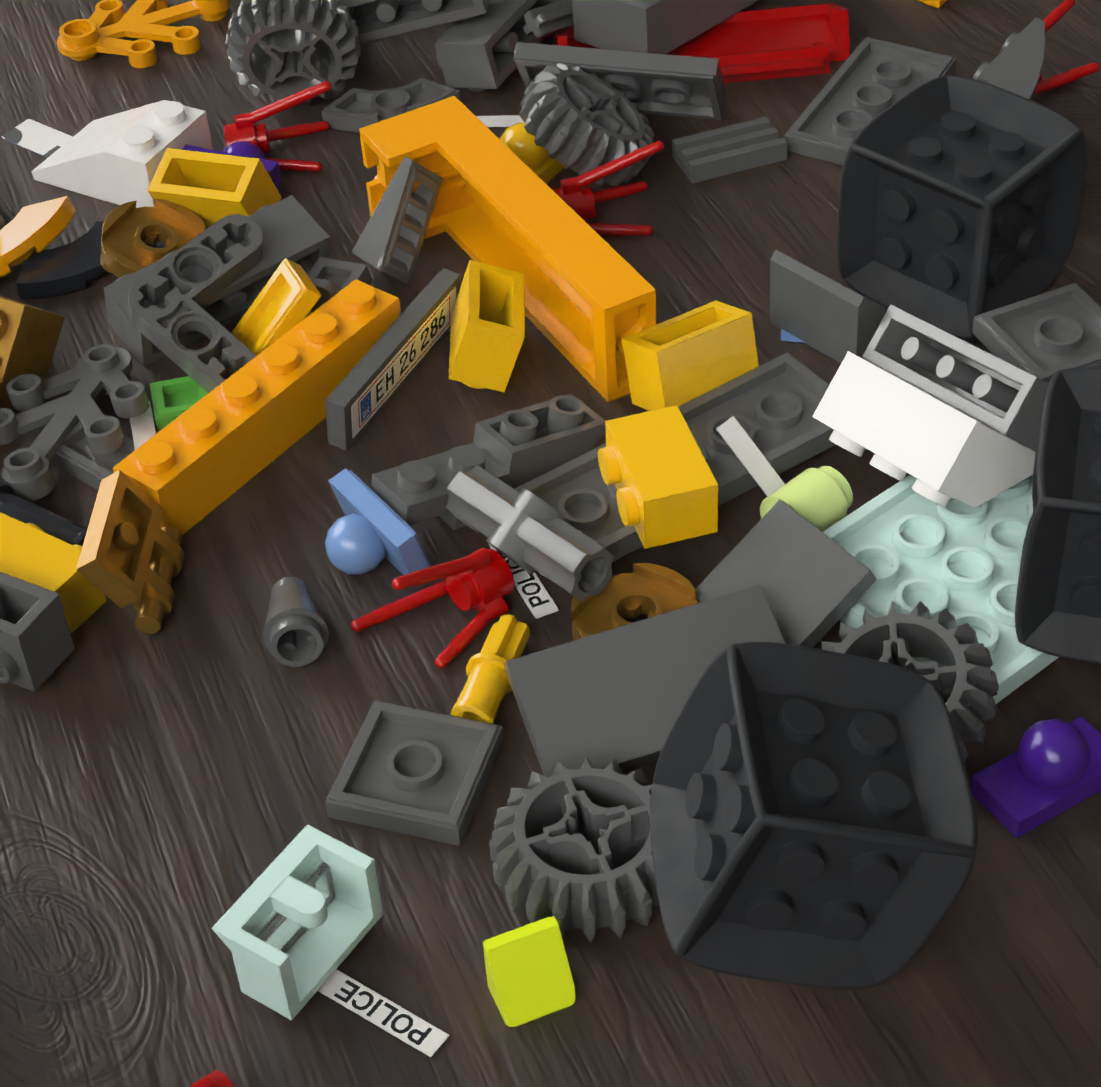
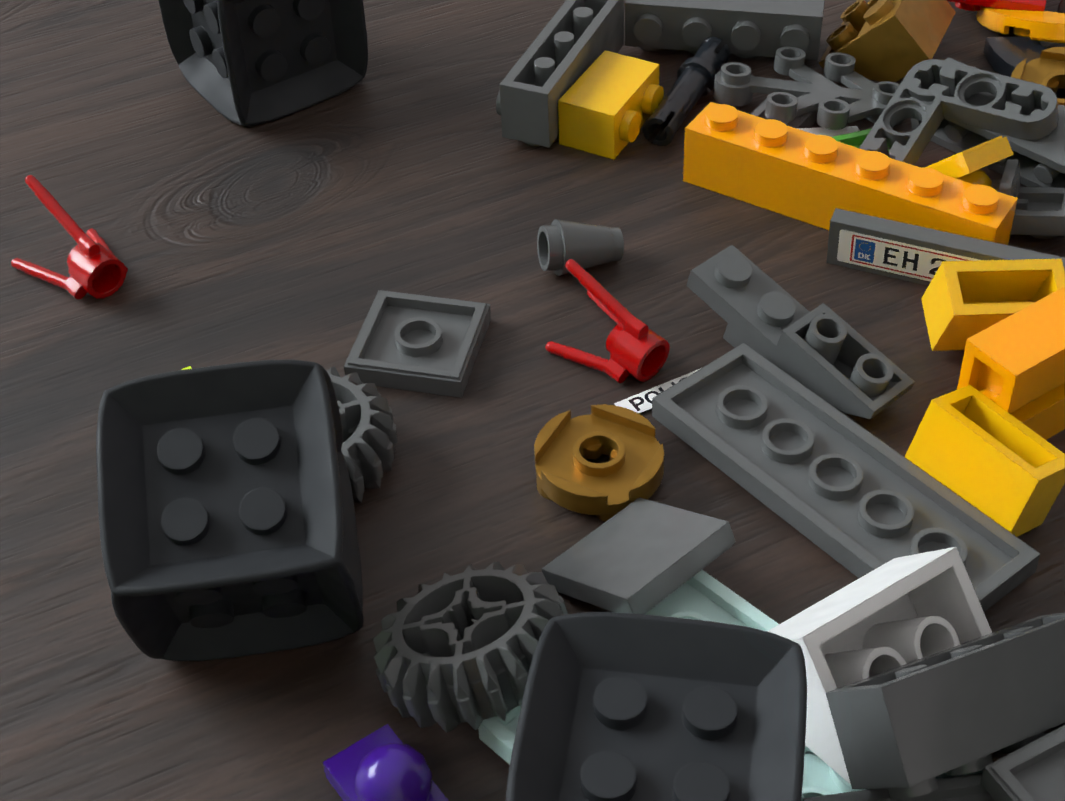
camera: 85 degrees right, 0 degrees up
(129, 552) = (628, 122): pearl gold plate -> none
(301, 920) = (234, 276): light aqua window -> none
(369, 531) = (669, 271): medium blue tile -> none
(383, 1013) = (191, 347): white sticker -> none
(486, 671) = (525, 370): yellow axle -> none
(530, 532) = (671, 354): dark grey piece -> none
(628, 684) = (498, 471): dark grey tile -> none
(659, 477) = (762, 435): yellow piece -> none
(750, 456) = (822, 534): white sticker -> none
(816, 495) = (772, 576): yellowish green brick -> none

